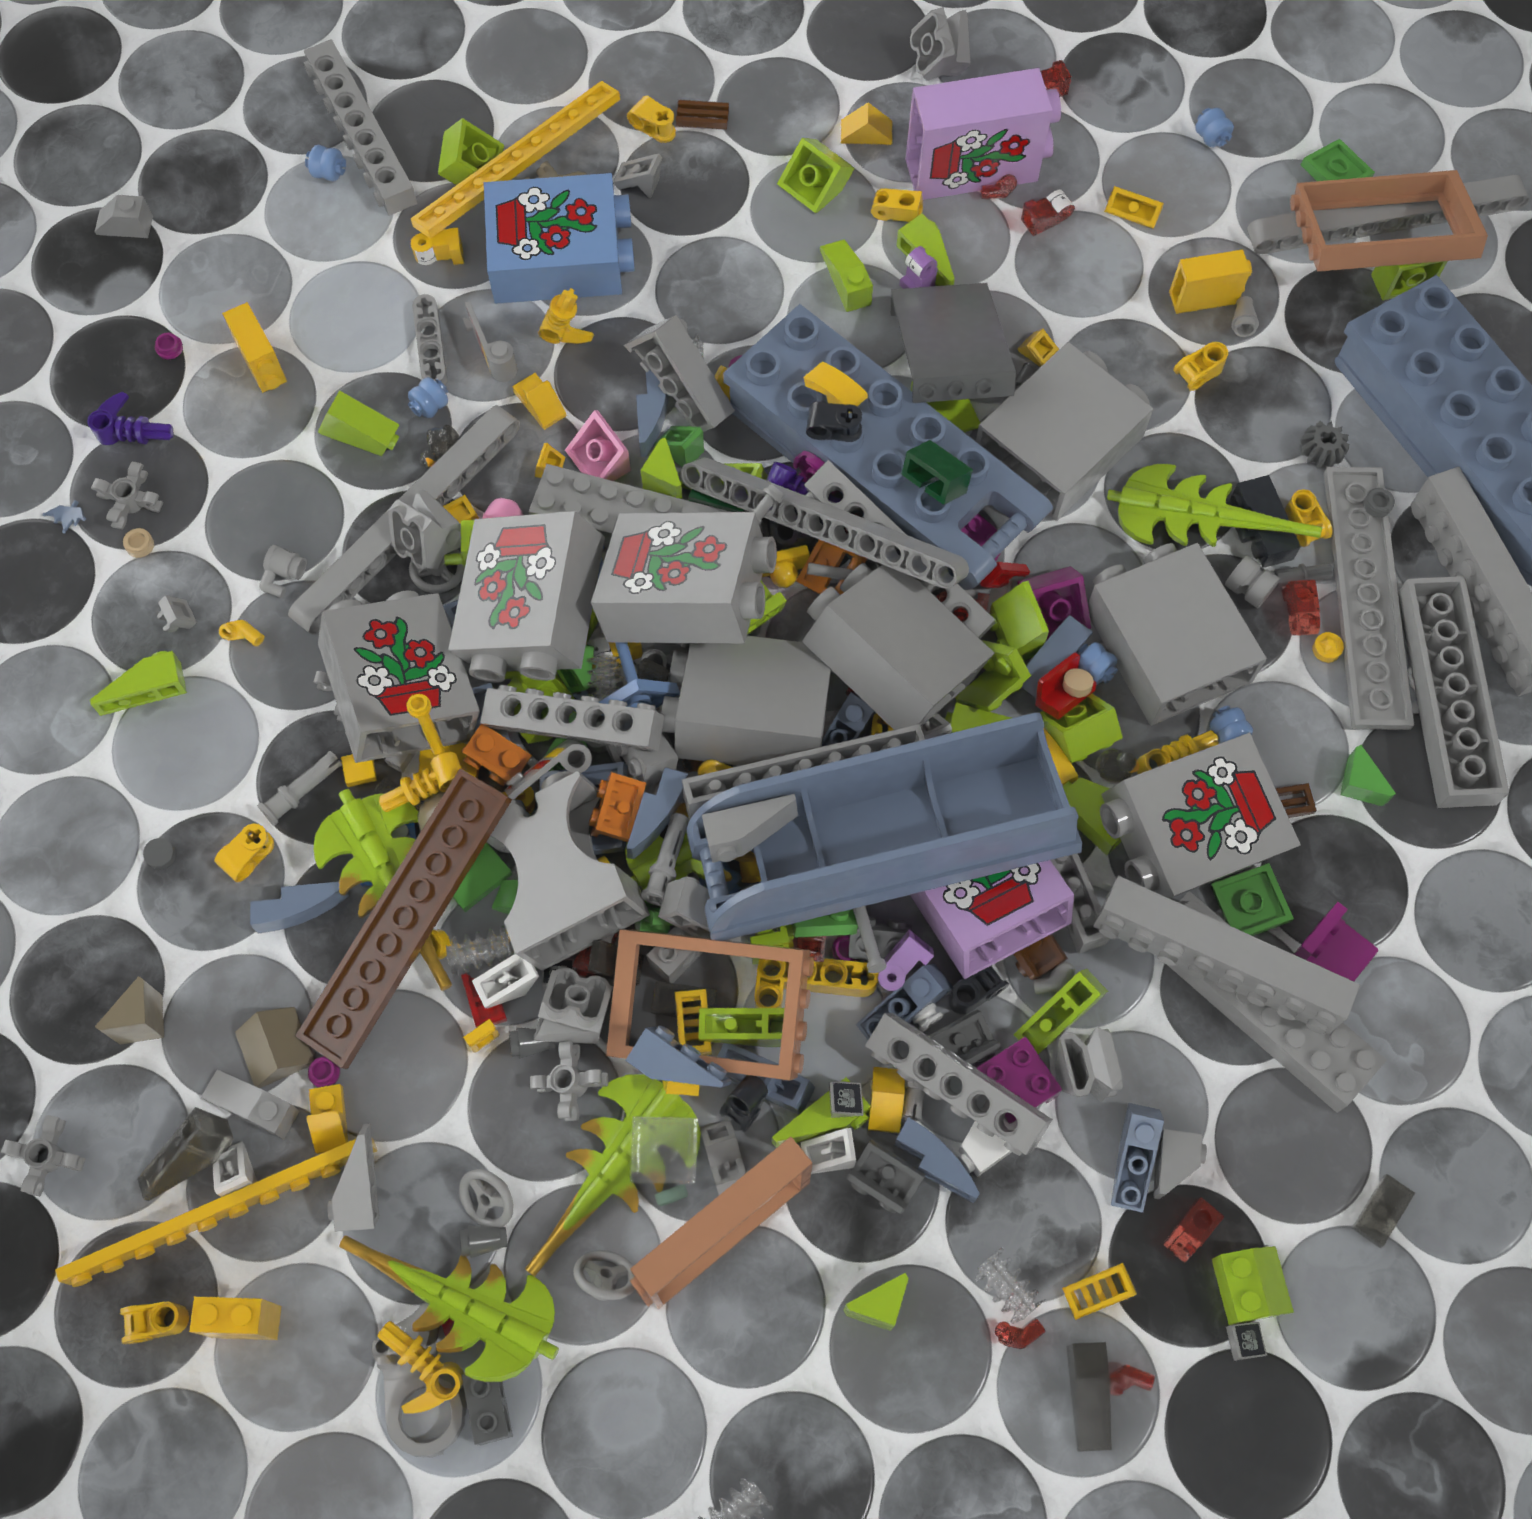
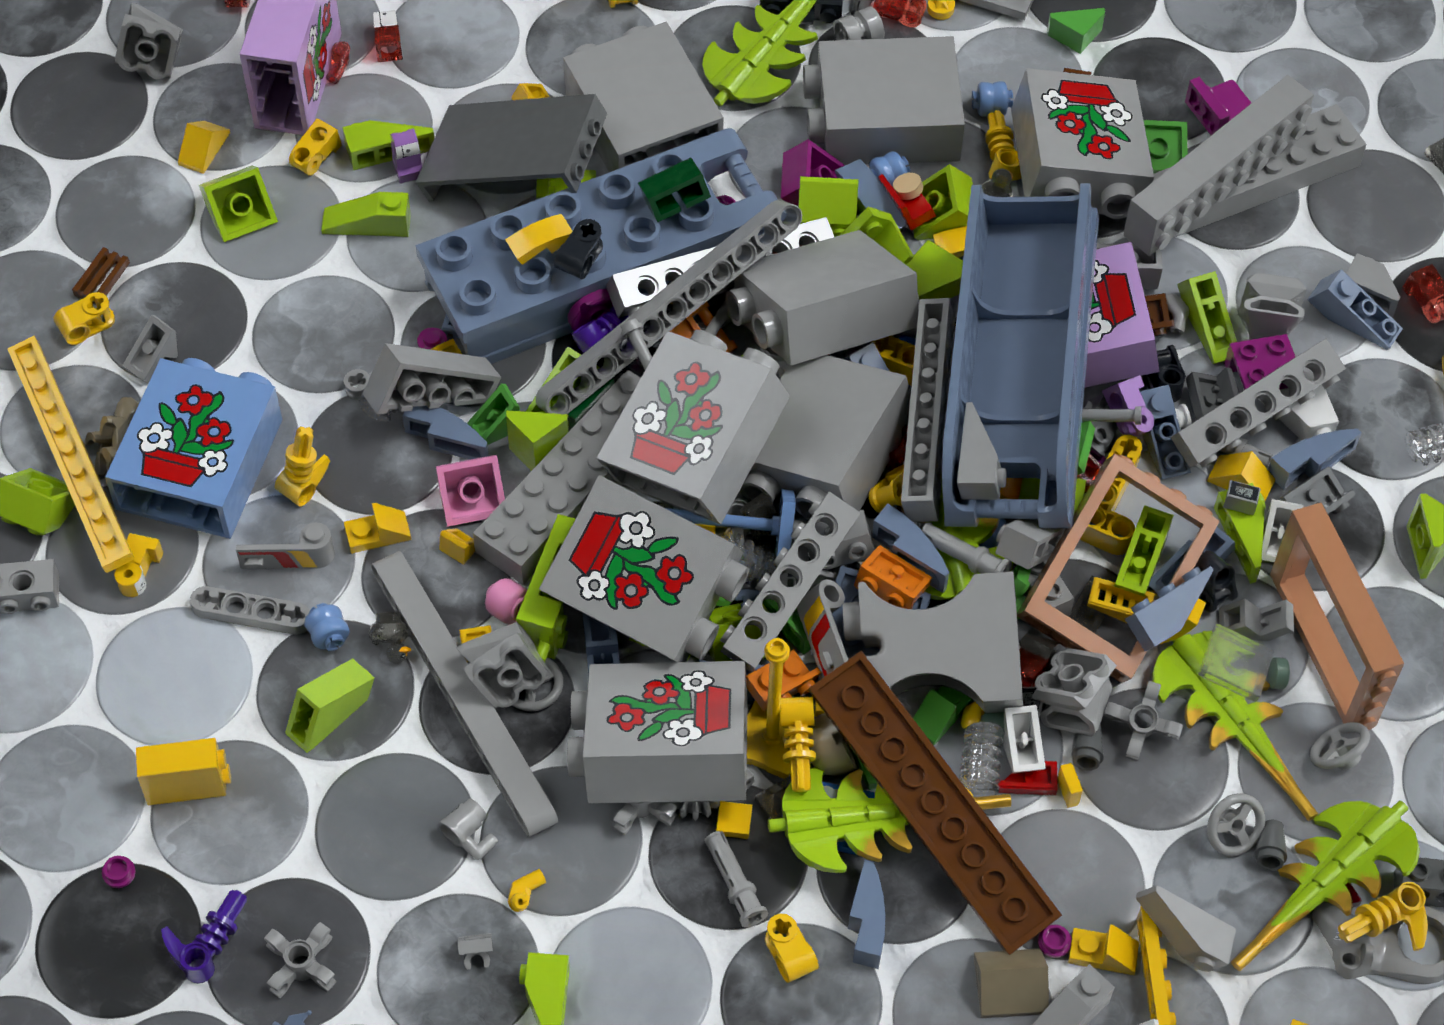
camera: 70 degrees left, 10 degrees down
(138, 543) = (361, 968): tan tile -> none

